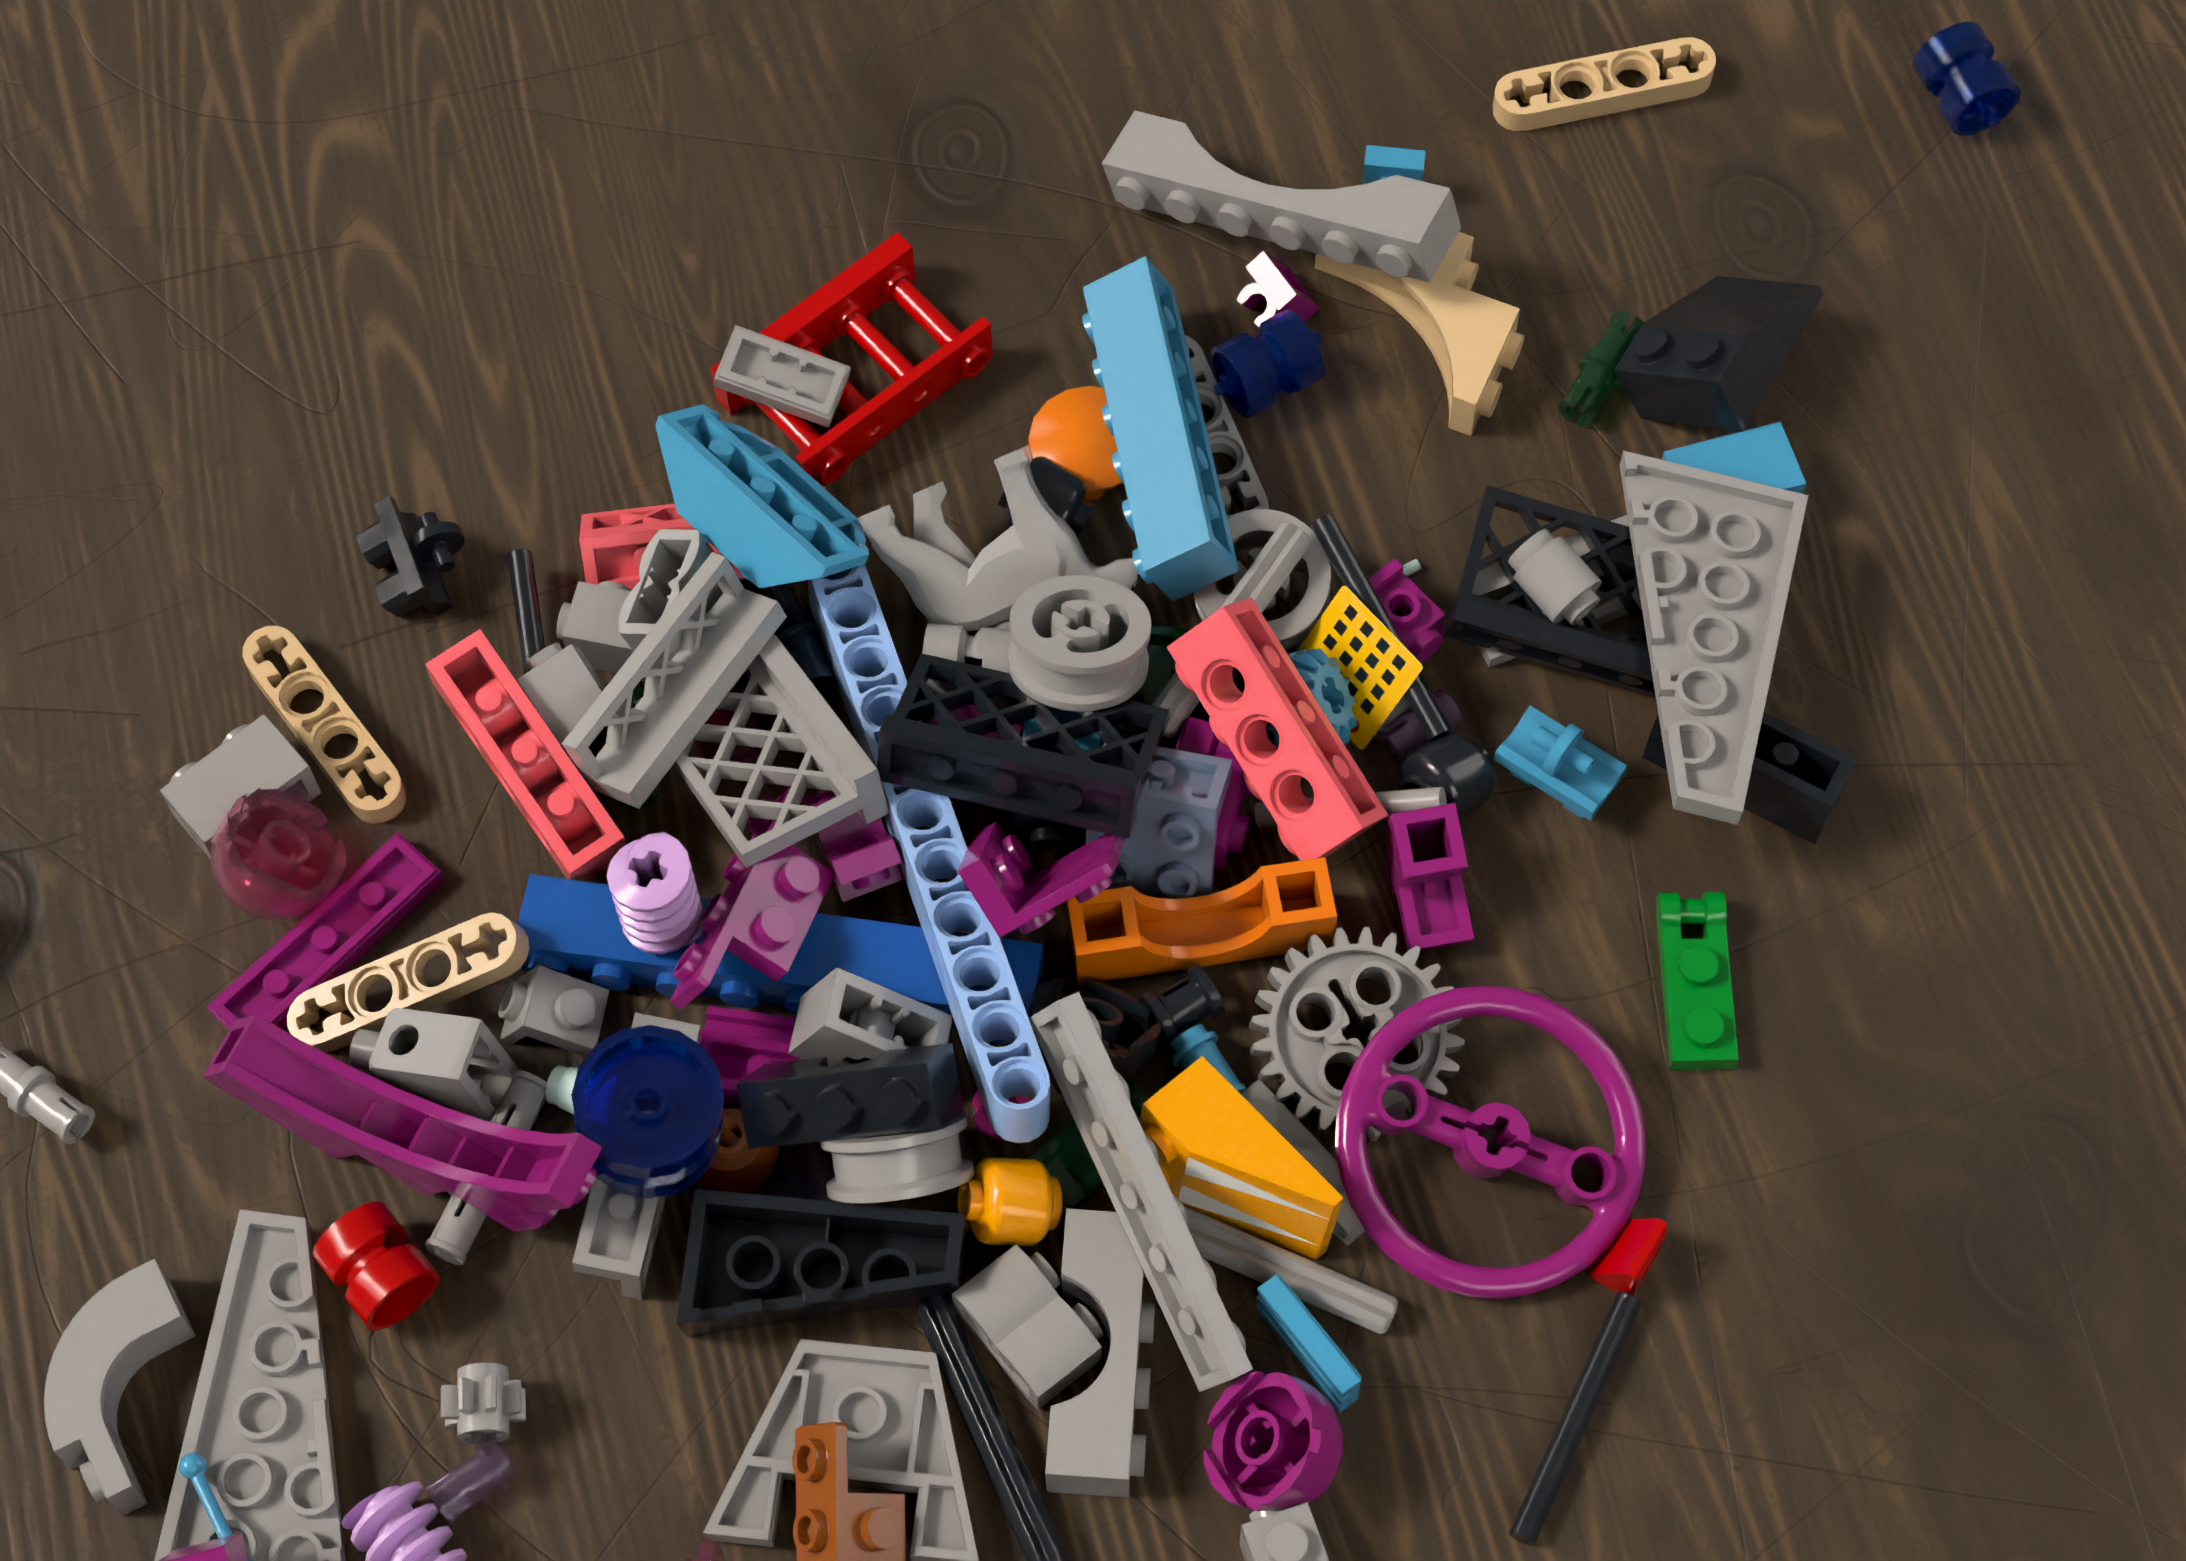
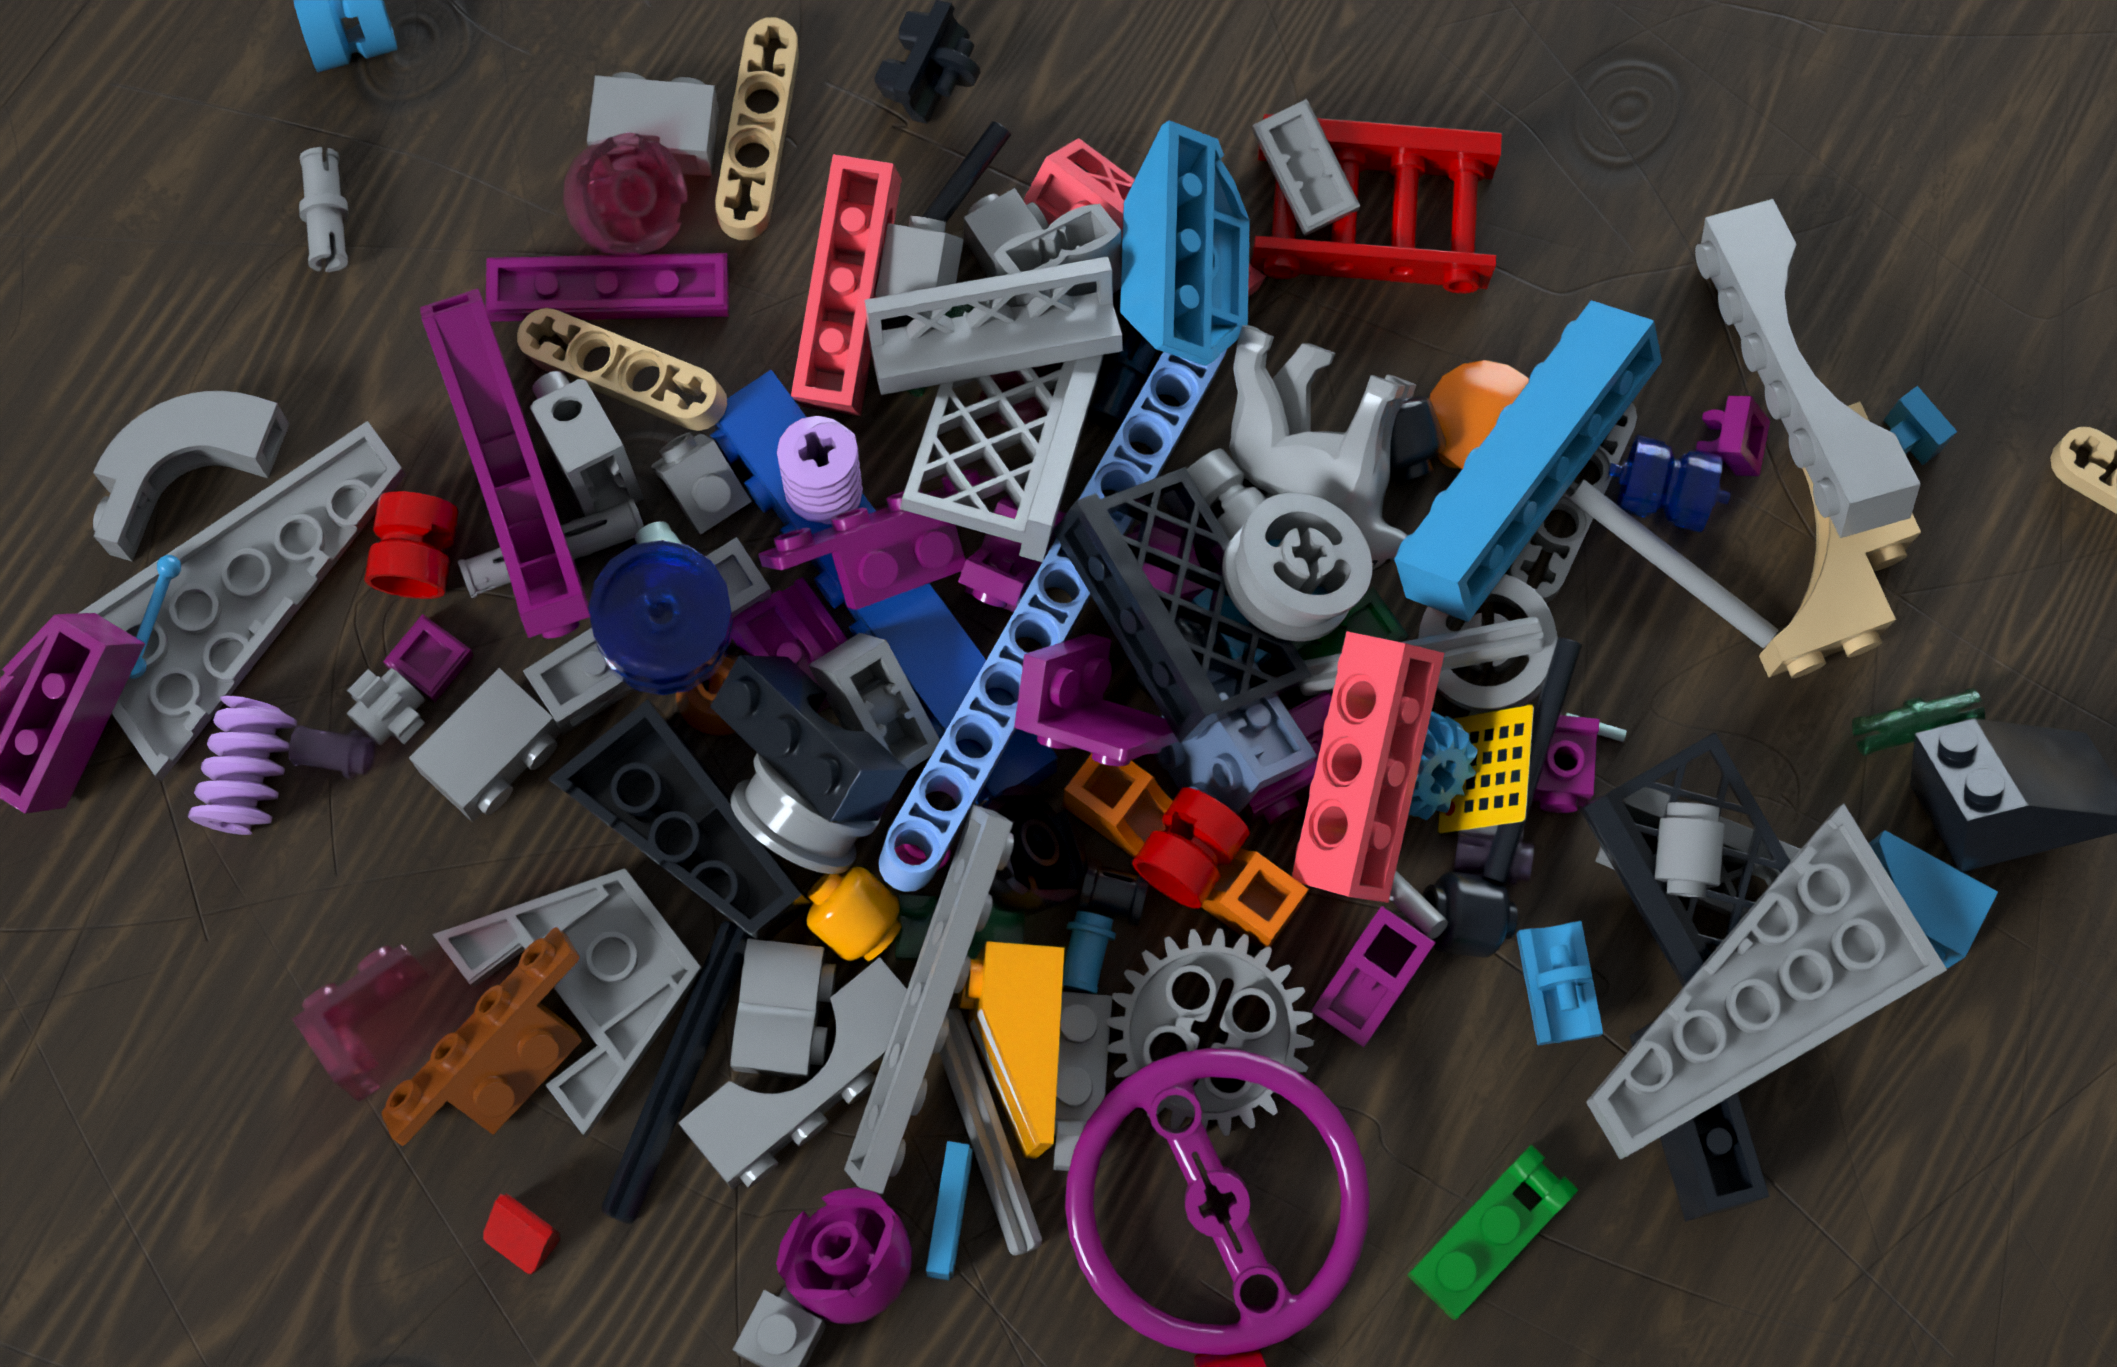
camera: 40 degrees right, 10 degrees up
(472, 1337) = (429, 658): none -> magenta tile
(597, 1353) = (487, 746): none -> light grey brick
(1211, 908) = (1195, 841): none -> red wheel
(1327, 415) = (1673, 564): none -> light grey bar

